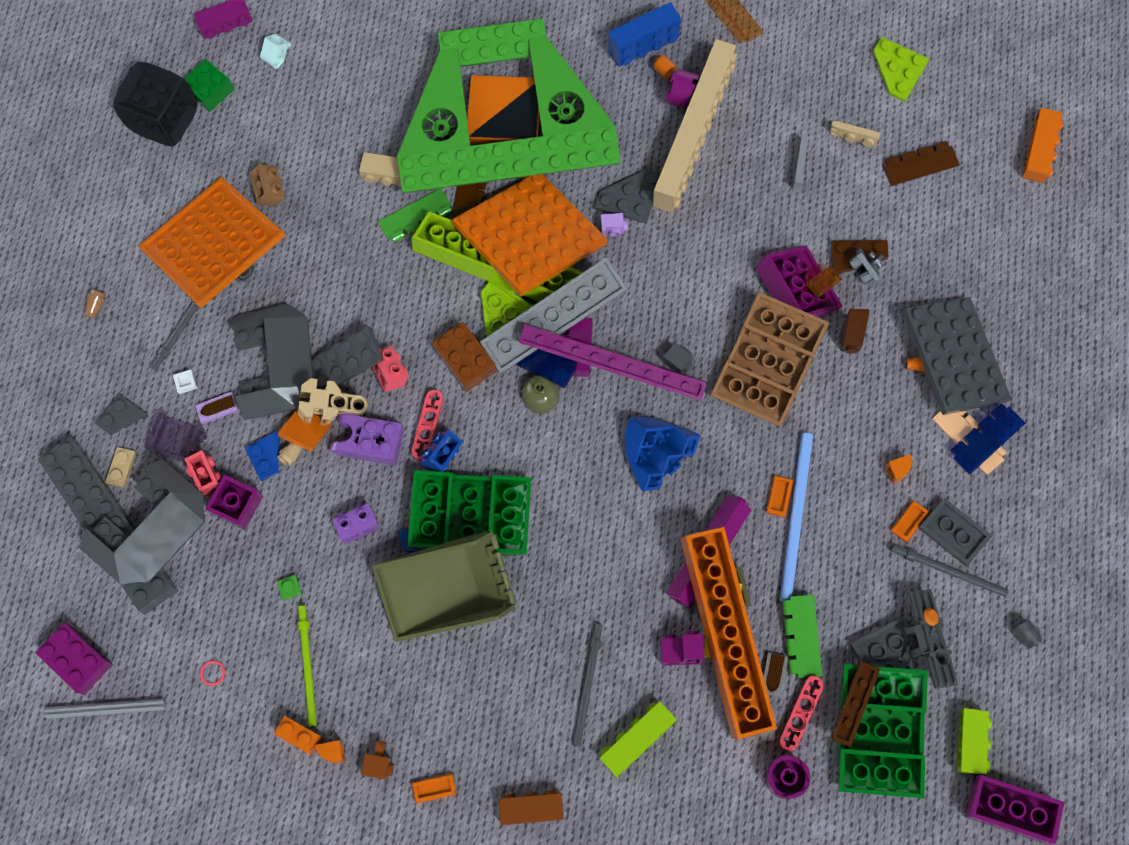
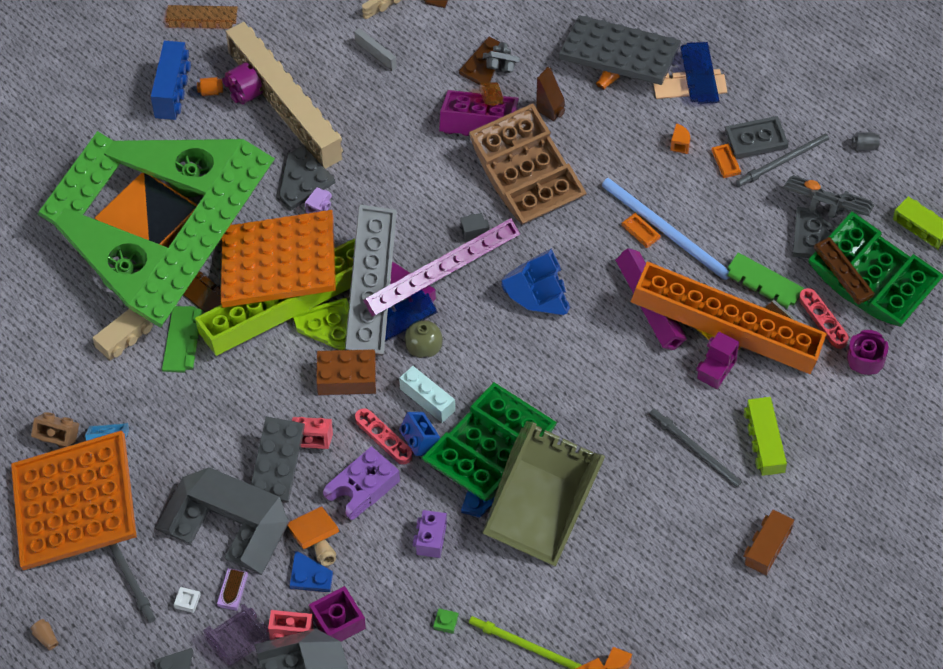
camera: 60 degrees left, 15 degrees down
(289, 222) = (101, 430): none -> dark azure plate
(322, 402) = (308, 487): tan connector -> none
(377, 765) = (652, 635): dark orange brick -> none
(434, 788) = (701, 606): orange tile -> none
(486, 432) = (427, 394): none -> light aqua brick

